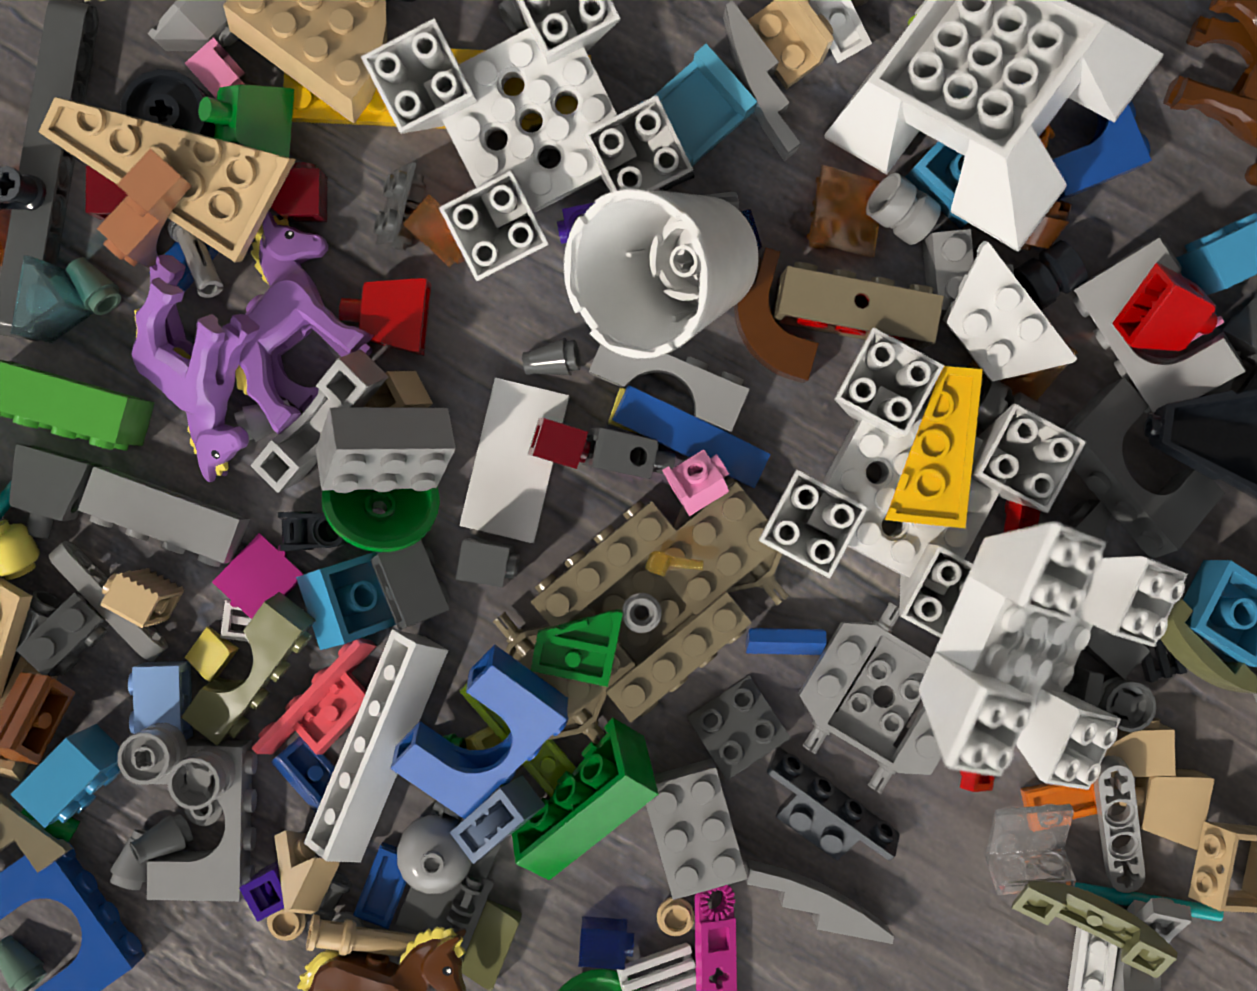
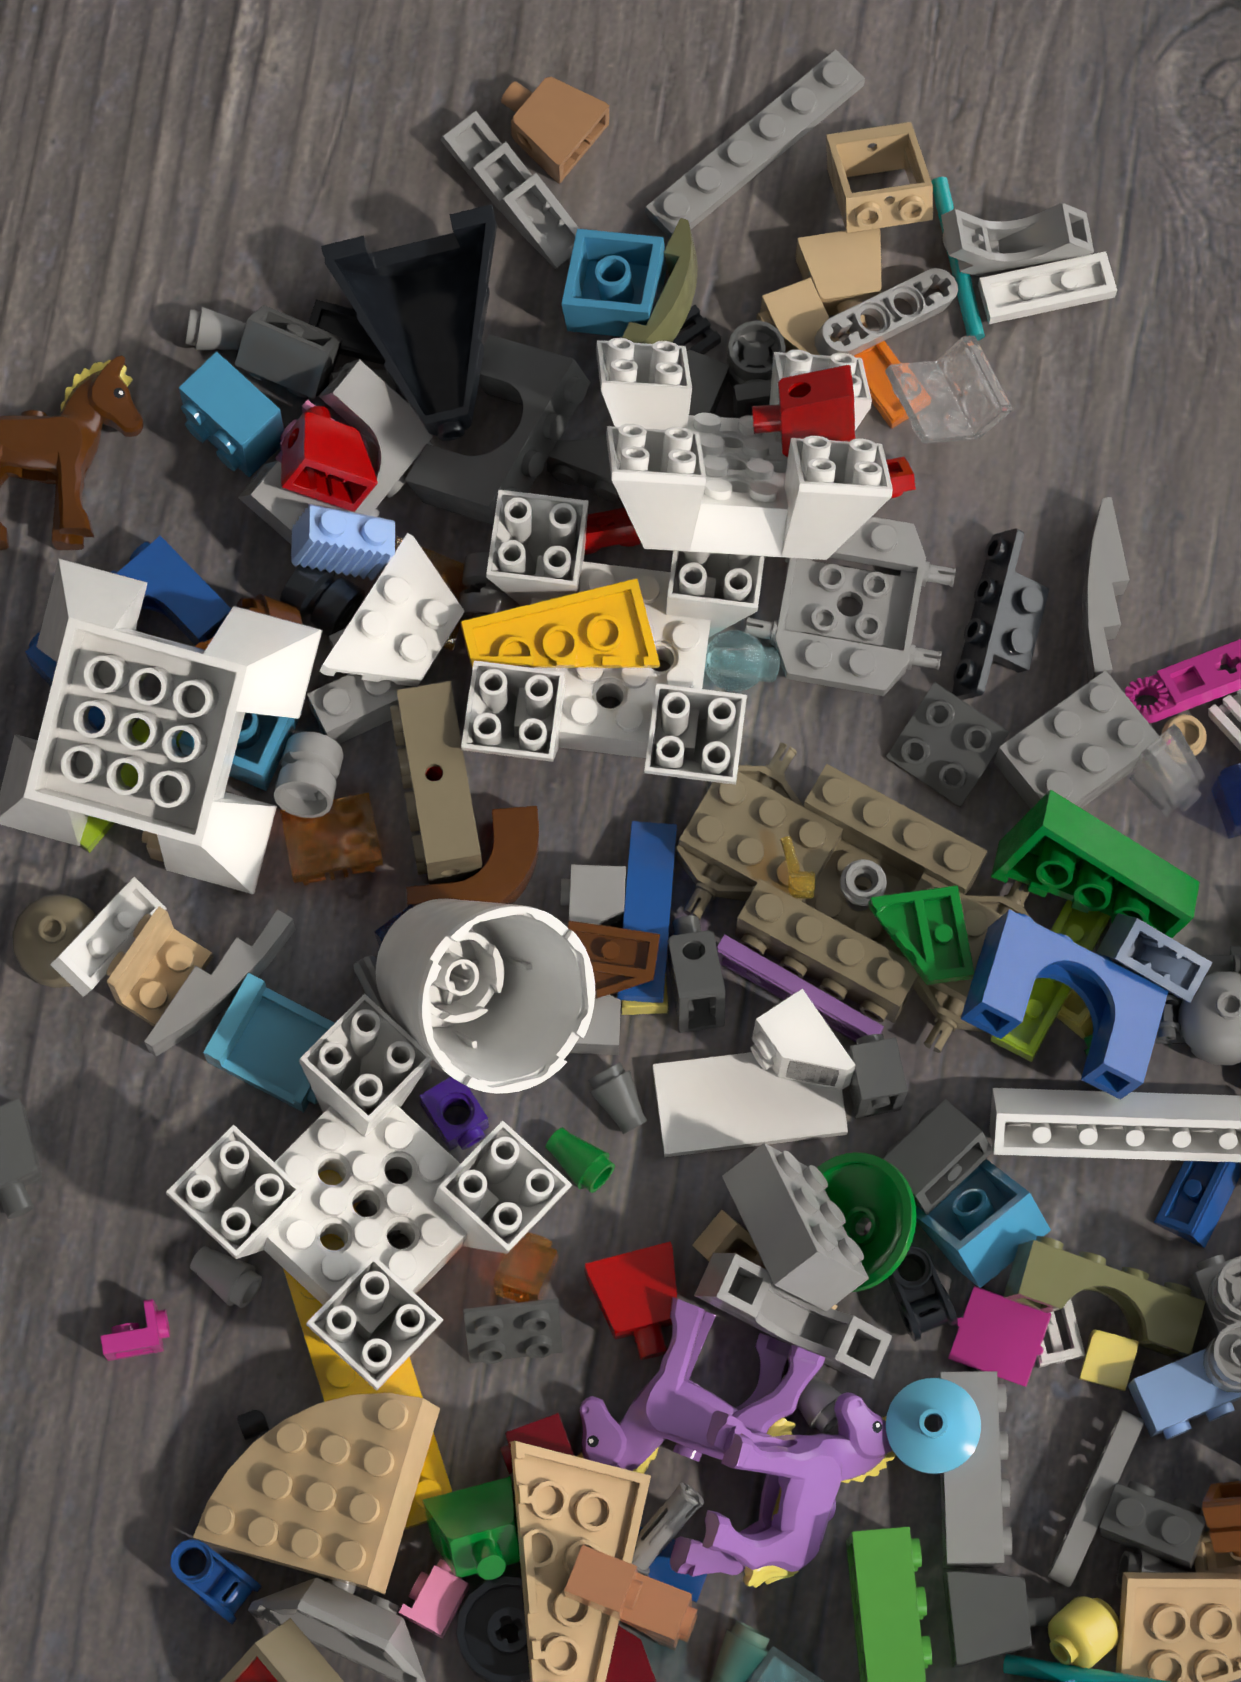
camera: 110 degrees left, 15 degrees down
(141, 597) = (1072, 1450): tan brick -> none
(218, 501) = (928, 1450): none -> medium azure dish
(325, 707) = (1114, 1199): coral bracket -> none
(513, 311) = (582, 1161): none -> green cone
(531, 510) = (801, 1045): none -> white slope
(559, 443) = (712, 1049): dark red brick -> none
(581, 530) = (785, 984): none -> medium lavender tile
(645, 893) = (1169, 772): none -> clear slope
(659, 388) = (618, 956): none -> reddish brown wing
(698, 481) = (709, 874): bright pink brick -> none
(785, 641) = (832, 728): blue tile -> none
(868, 589) = (740, 661): none -> clear light blue piece
(1057, 729) = (810, 406): none -> red torso
(1089, 301) = (342, 541): none -> light blue brick
(1094, 914) = (992, 299): olive slope -> none

